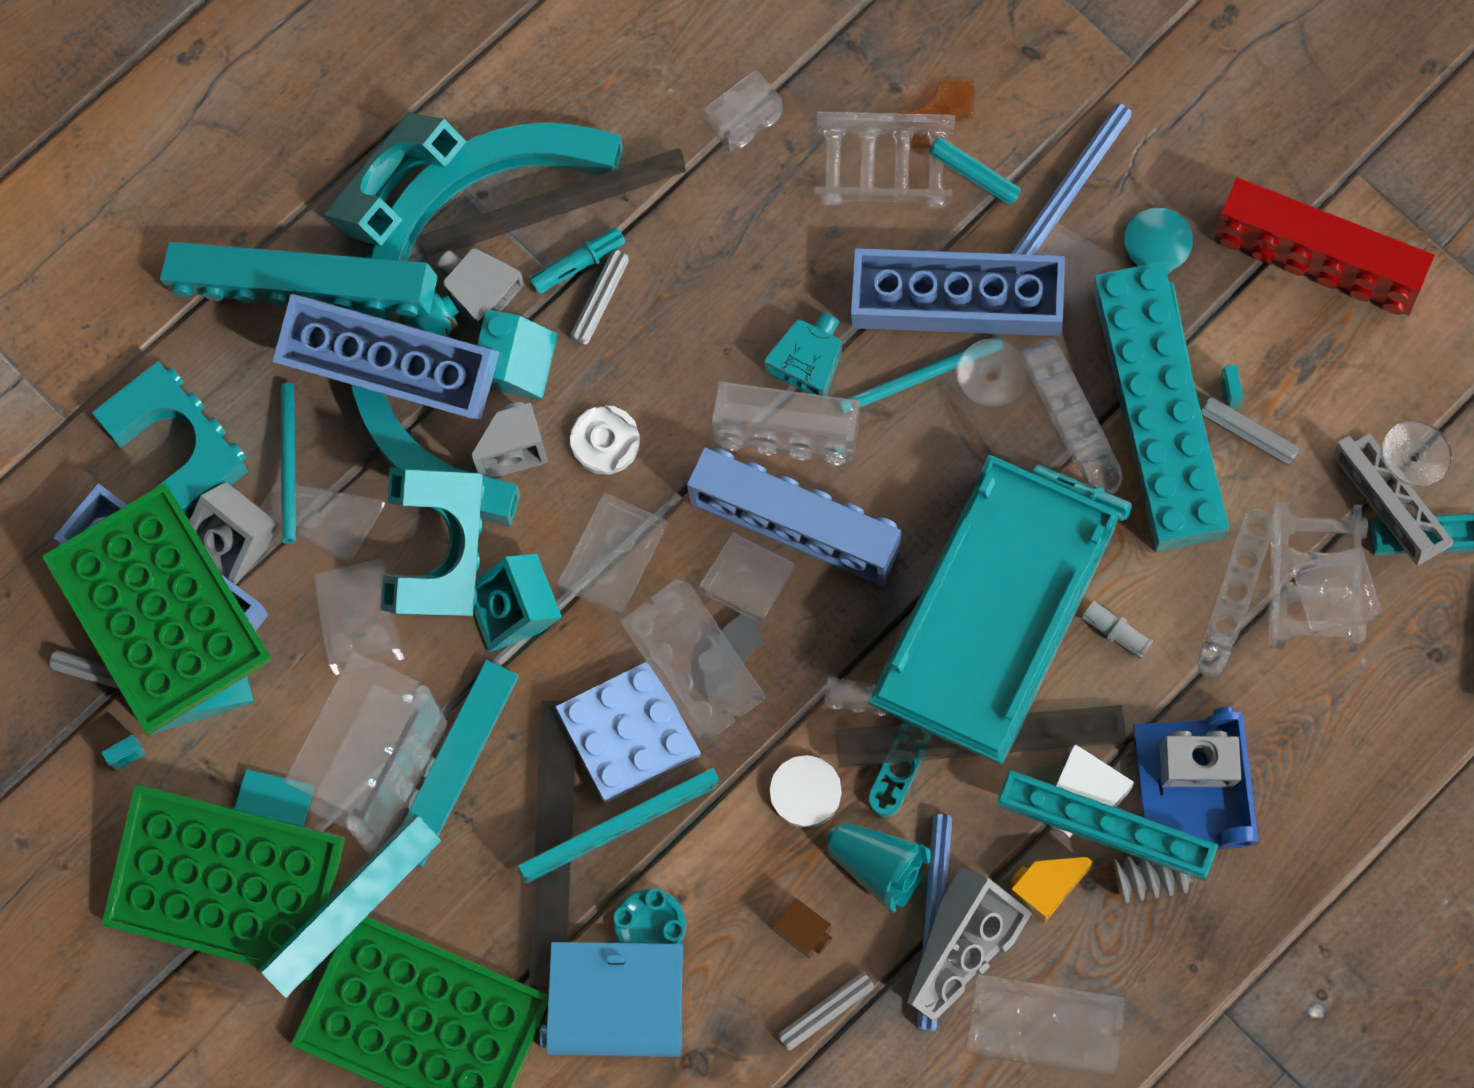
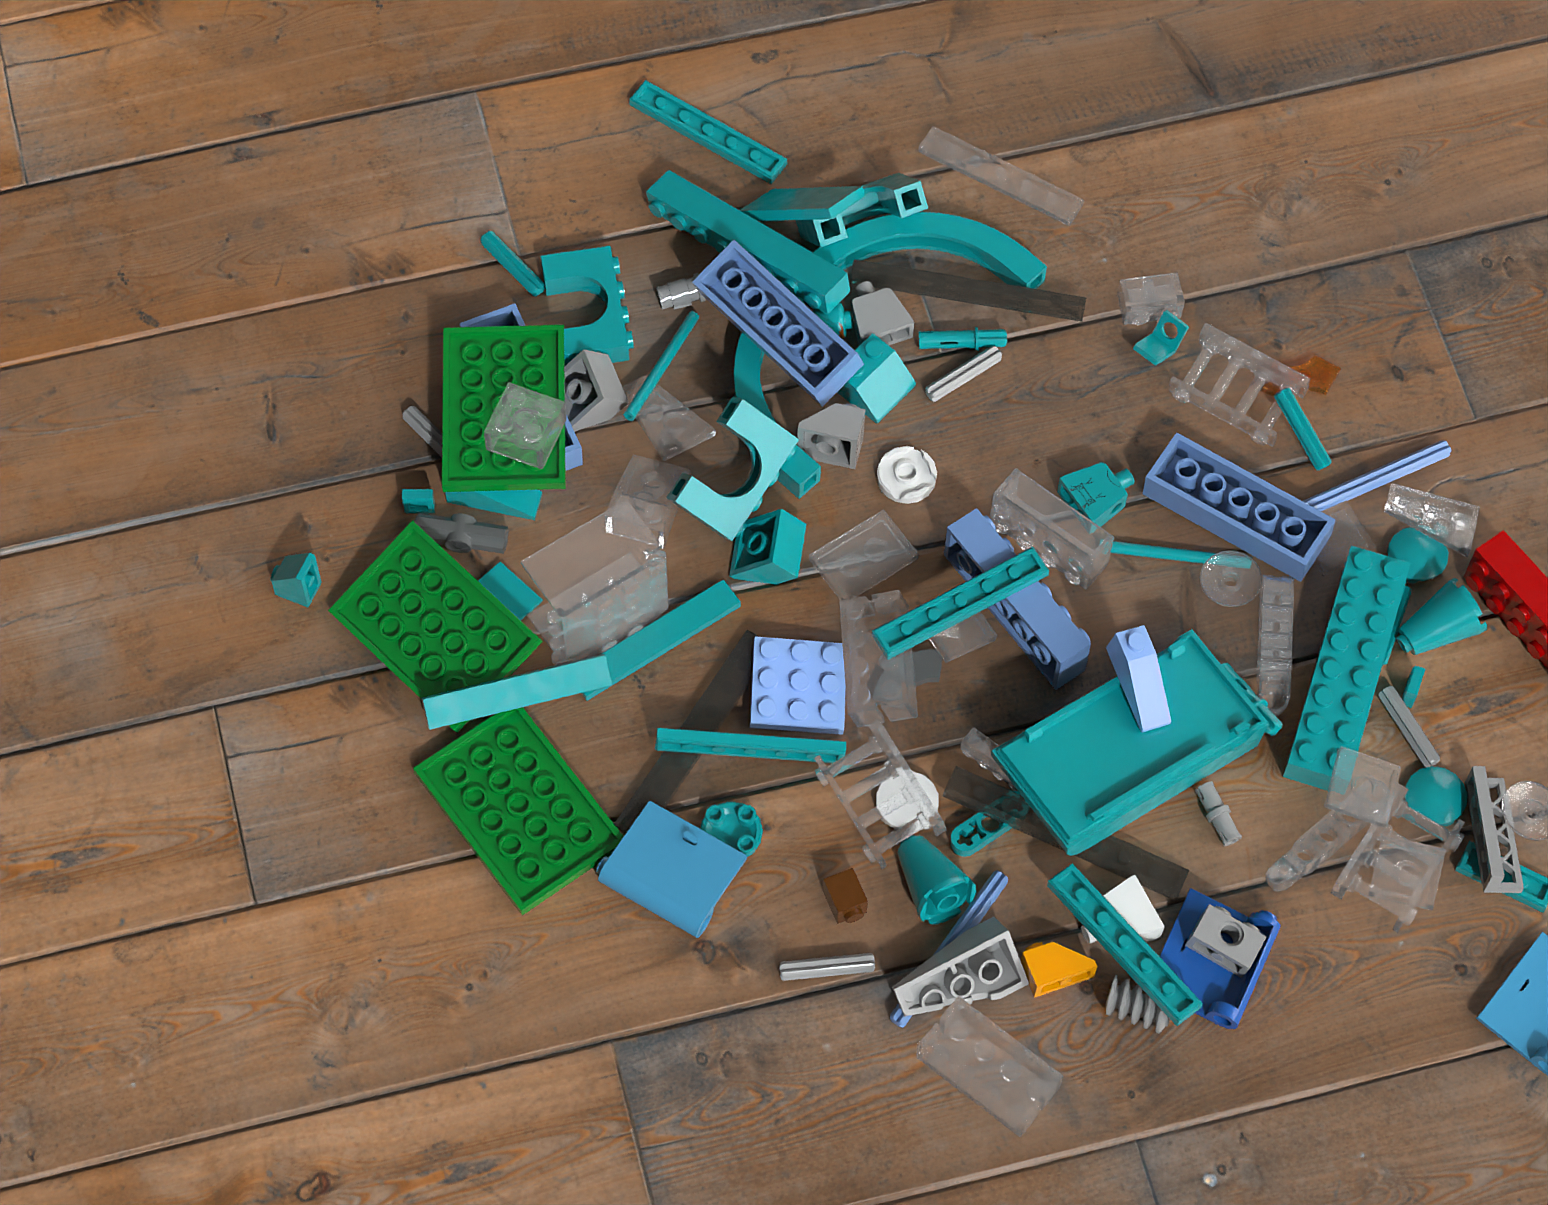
camera: 20 degrees right, 10 degrees down
(48, 910) = (297, 578): none -> teal slope
(65, 433) = (512, 263): none -> teal axle
(182, 172) = (708, 132): none -> teal tile
(190, 761) = (464, 533): none -> dark grey piece
(194, 620) = (525, 425): none -> clear brick
(259, 370) = (679, 293): none -> light grey axle
(333, 206) = (803, 203): none -> teal tile
(513, 55) = (1001, 176): none -> clear tile
(747, 561) = (960, 603): none -> teal tile
(778, 156) = (1158, 345): none -> teal bracket
(807, 785) = (910, 793): none -> clear fence
(973, 542) = (1140, 677): none -> light blue slope
(1154, 191) = (1435, 516): none -> clear wing
(1223, 302) = (1442, 620): none -> teal cone
(1246, 527) = (1362, 786): none -> clear tile
(1315, 487) = (1437, 794): none -> teal dish

